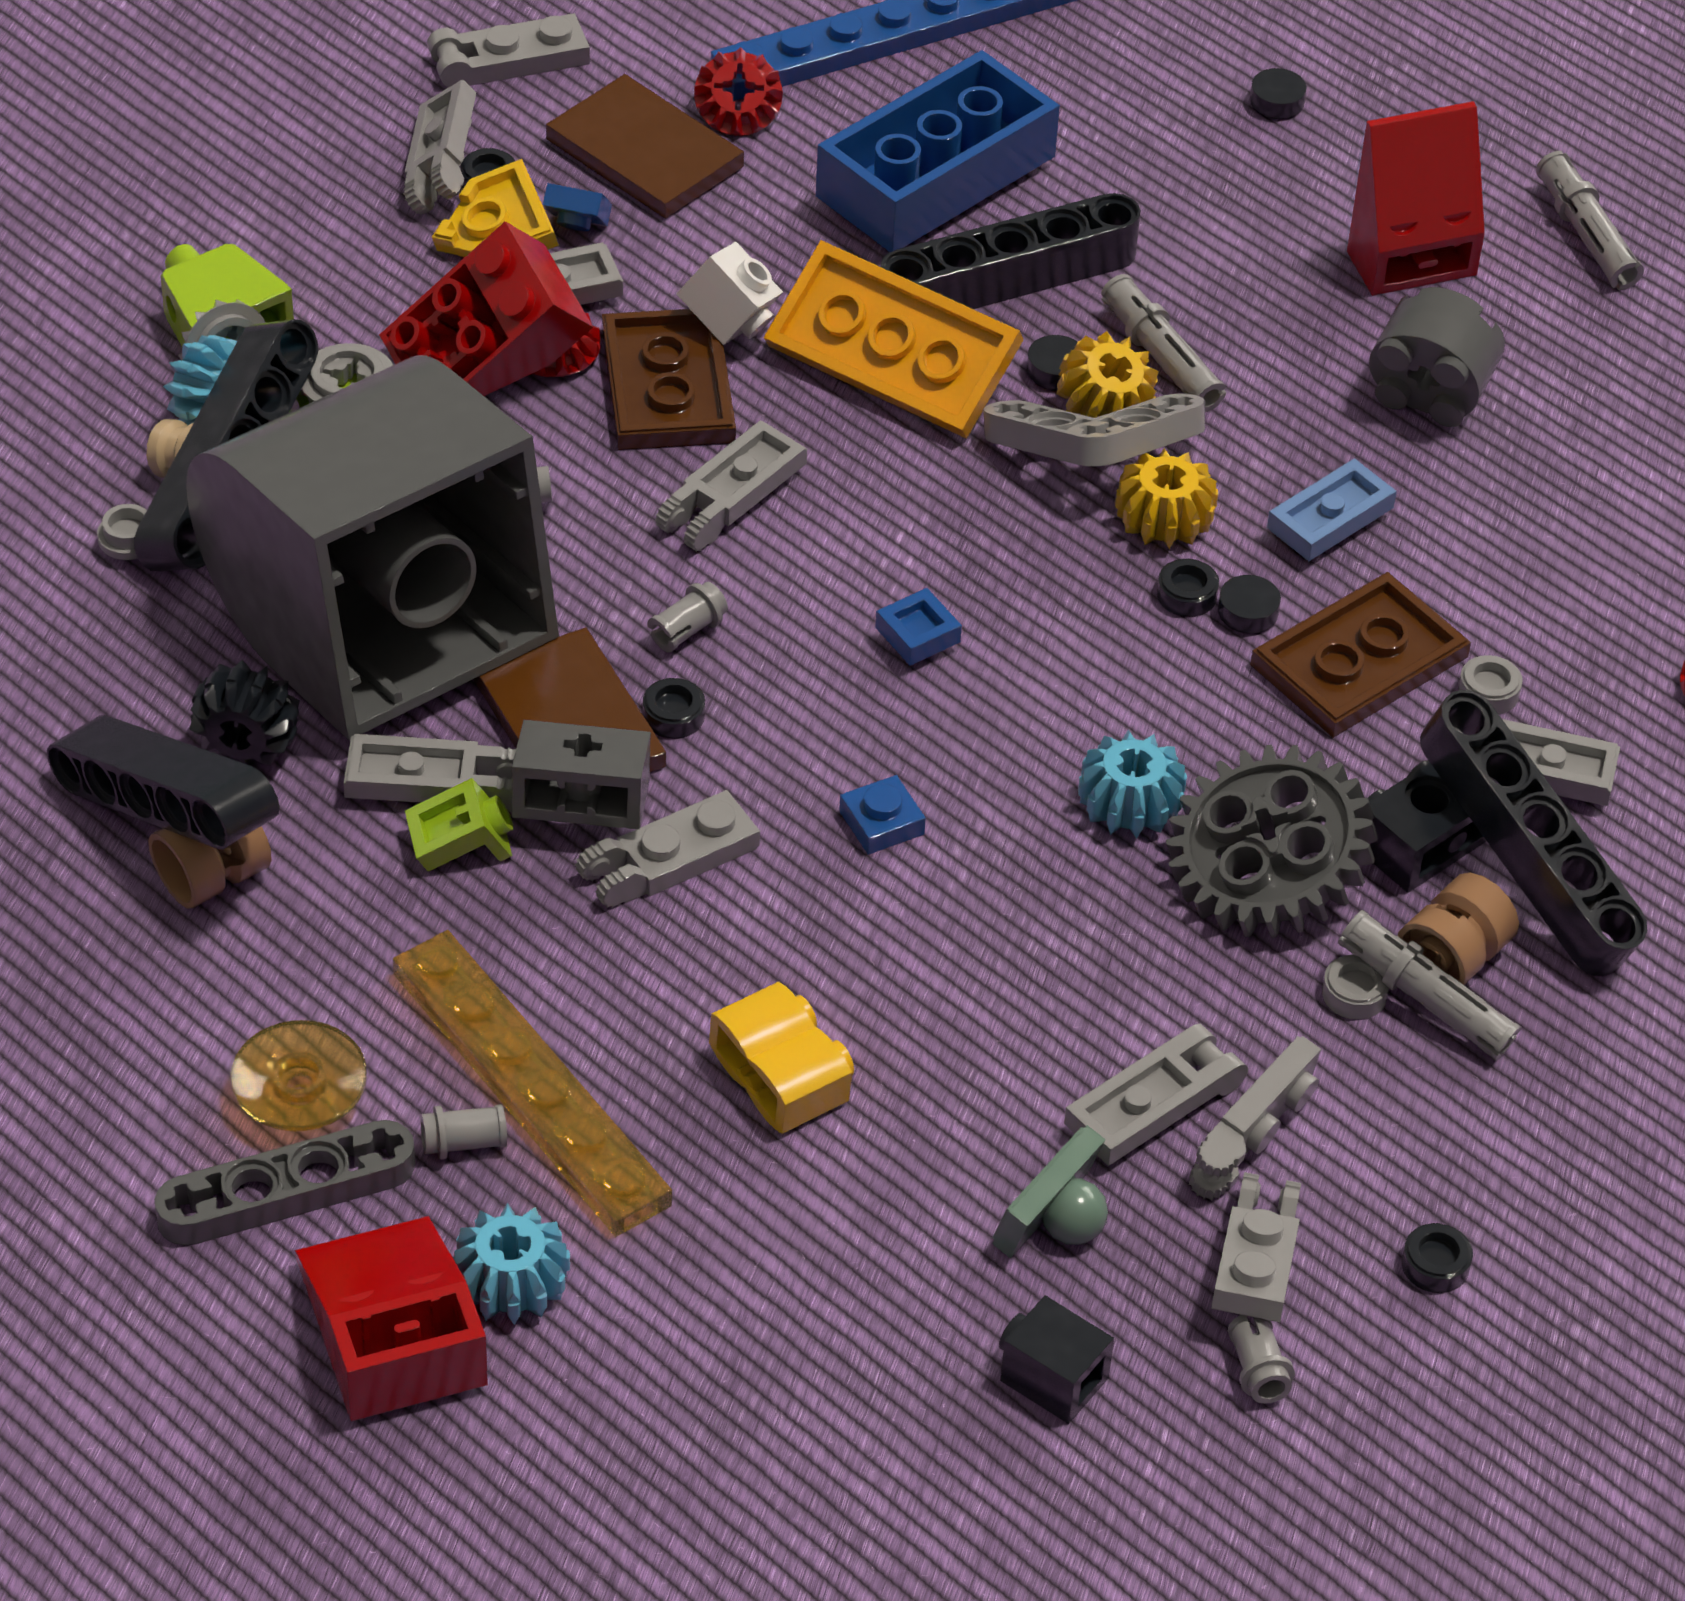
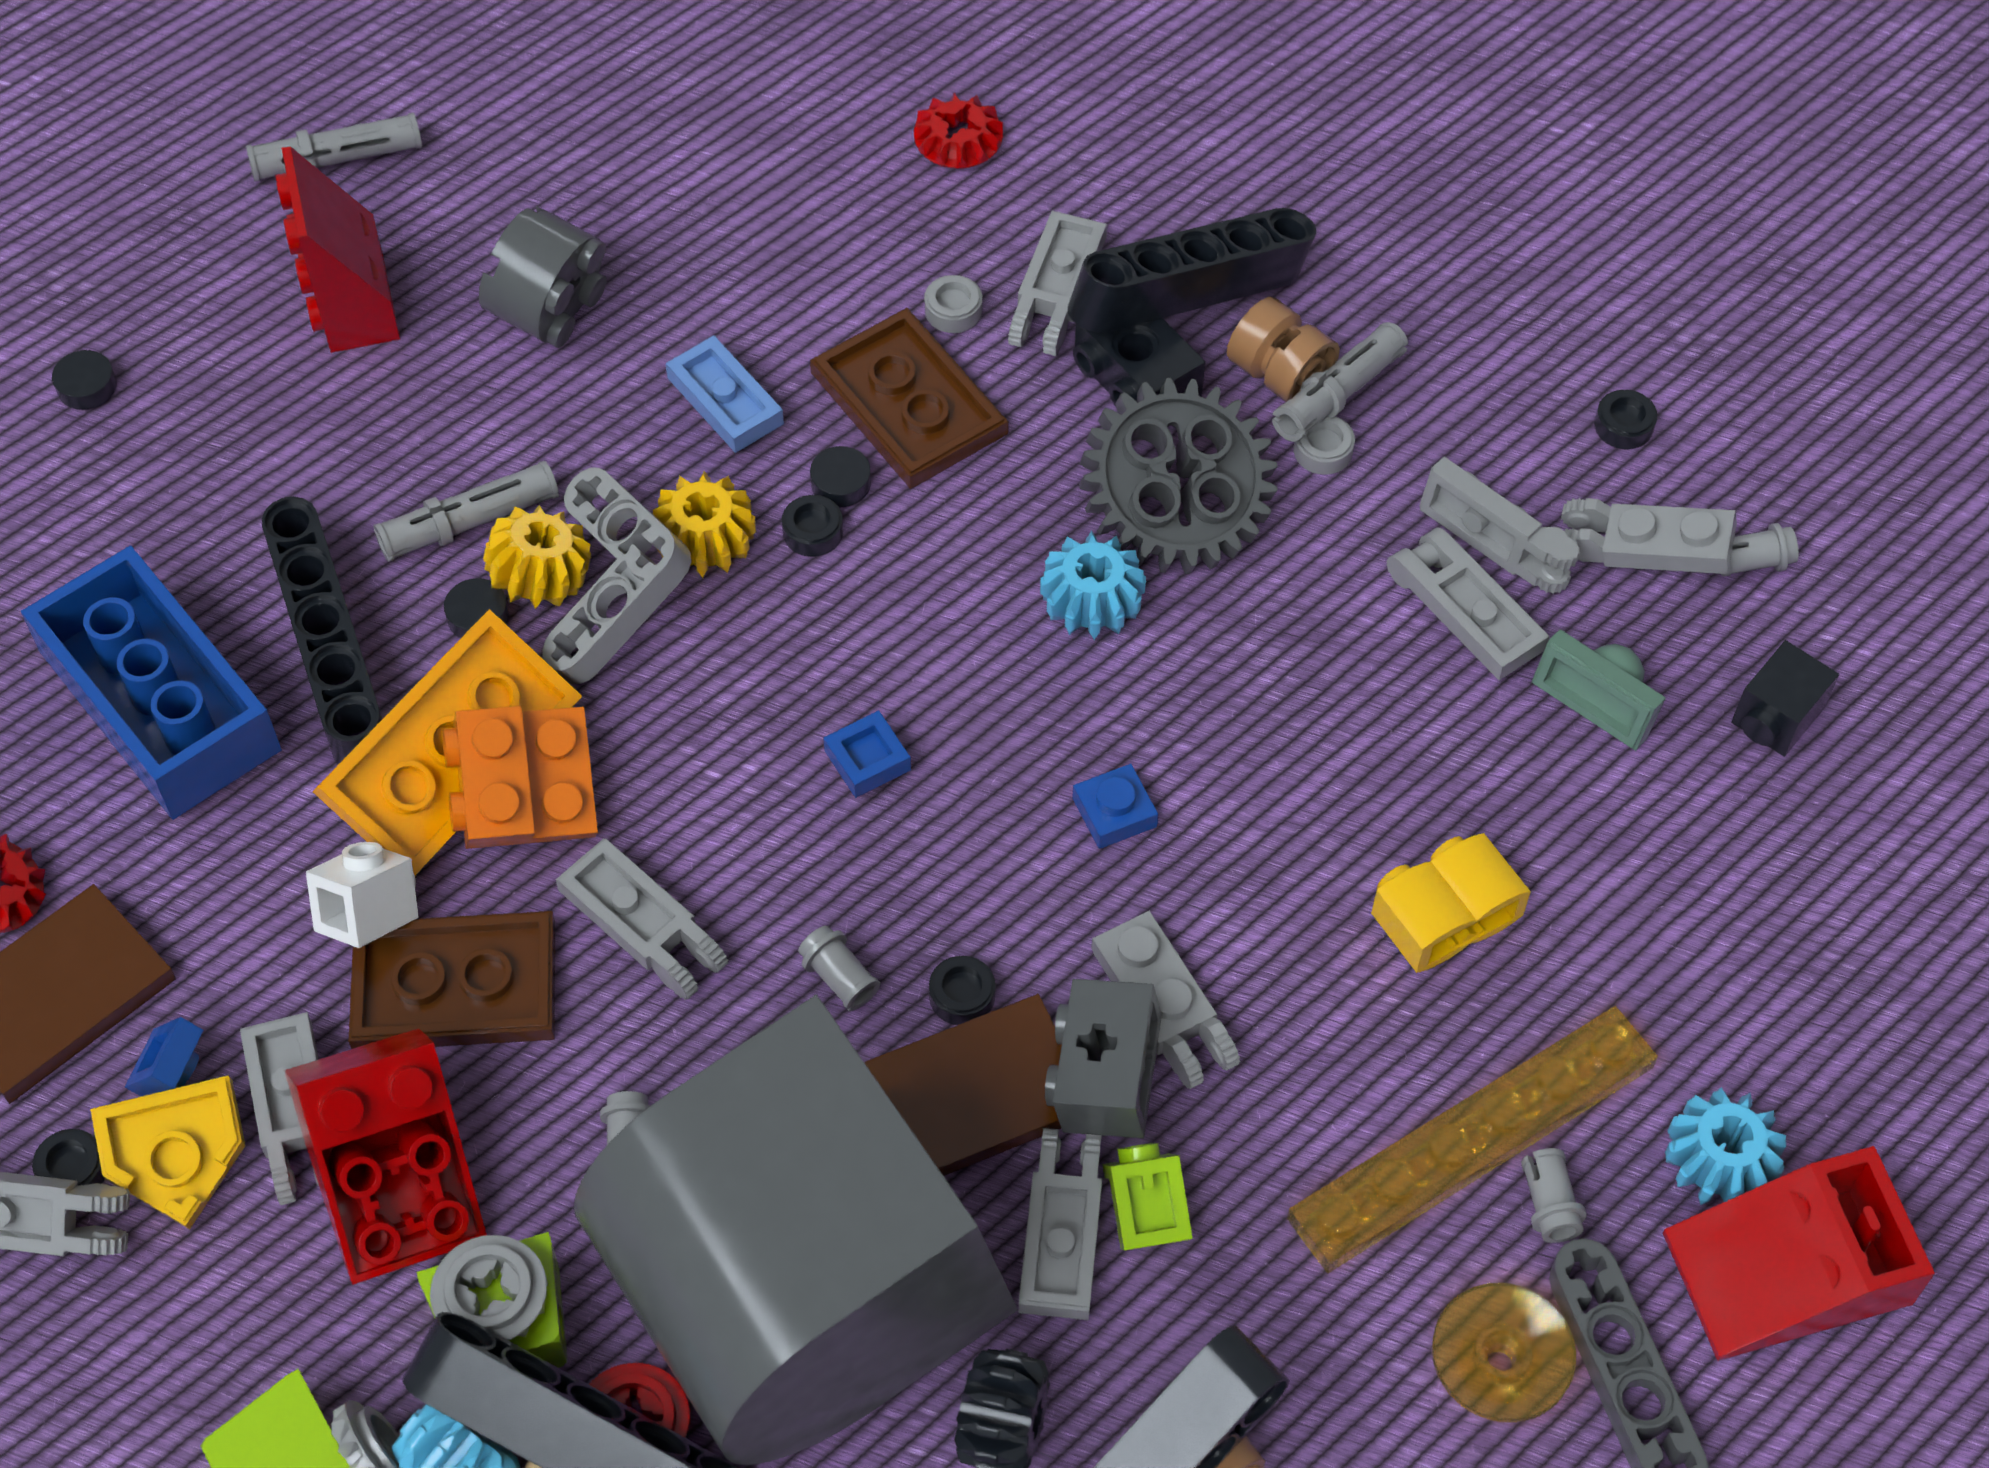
camera: 85 degrees left, 10 degrees up
(859, 381) = (520, 776): none -> orange plate

